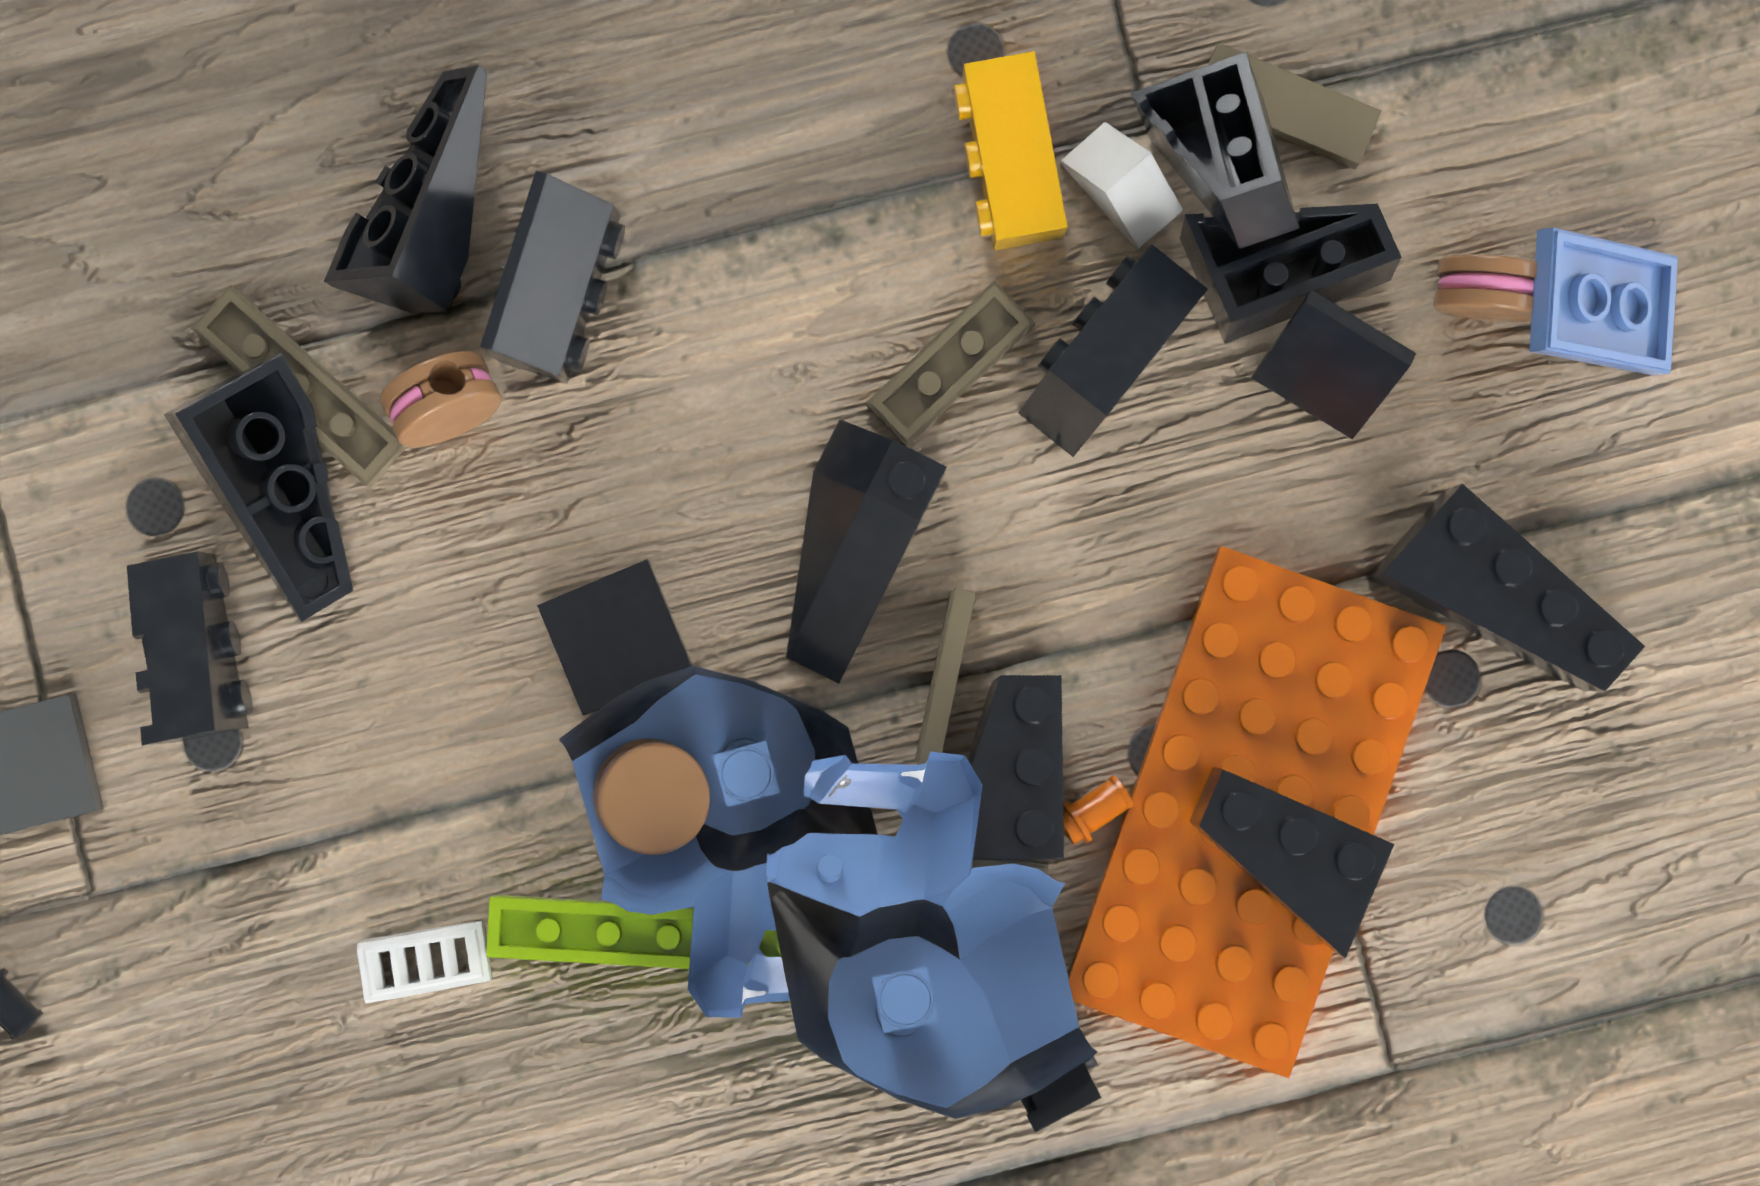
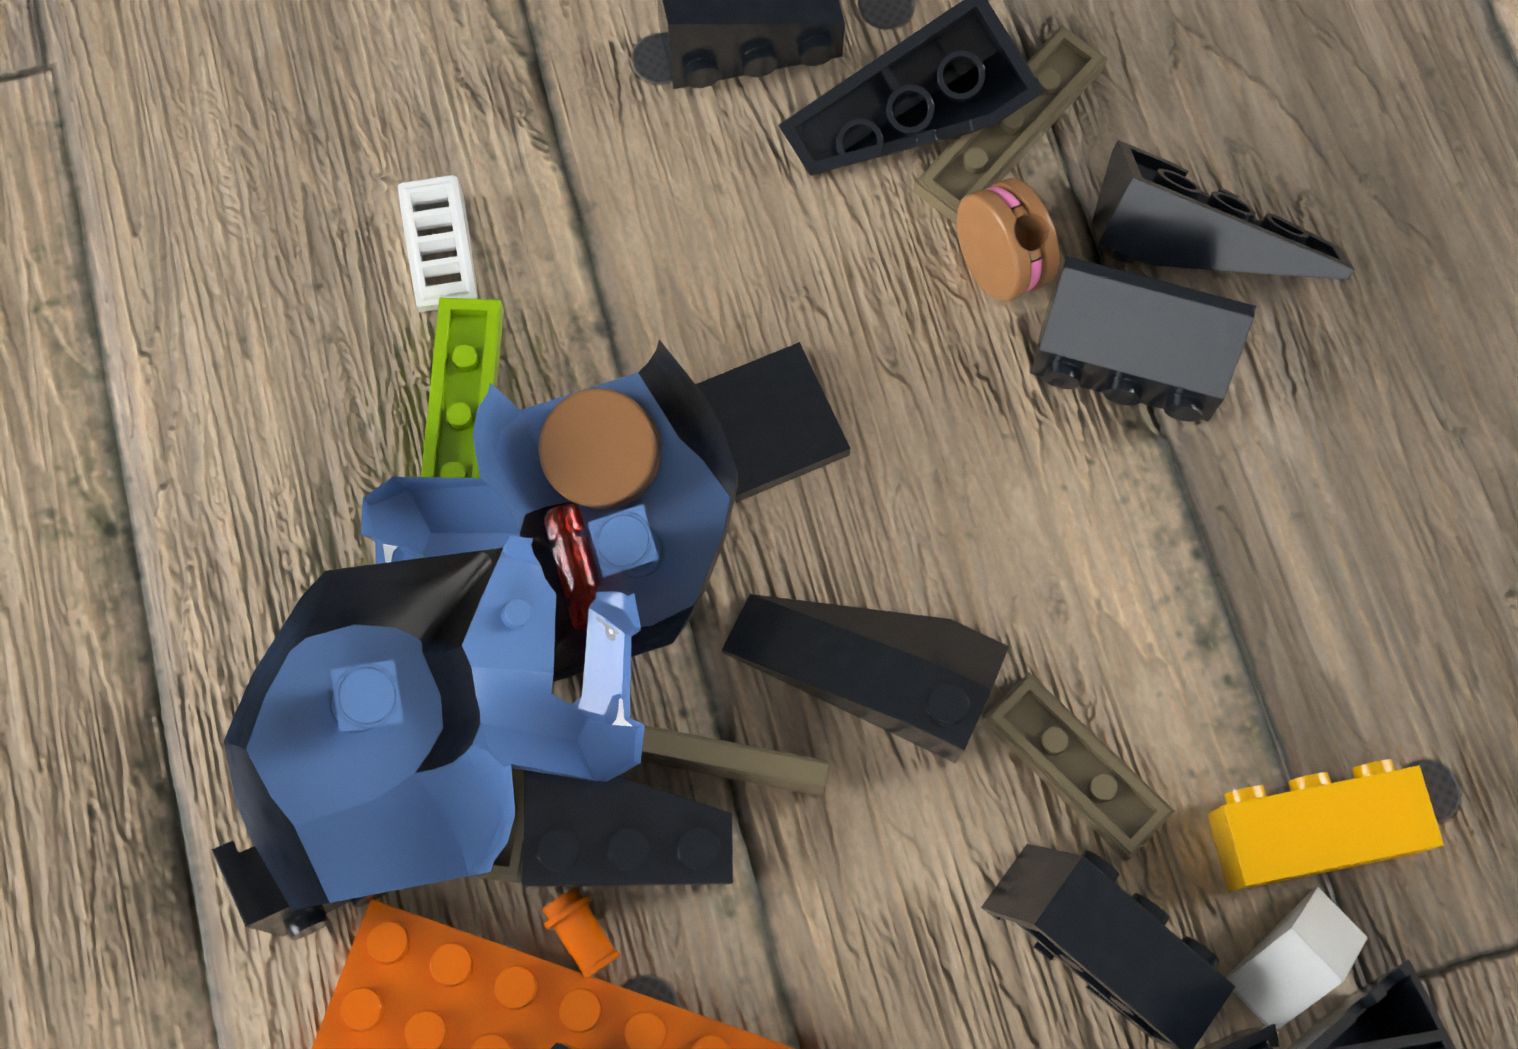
camera: 85 degrees right, 15 degrees down
(762, 819) = (573, 561): none -> clear red axle

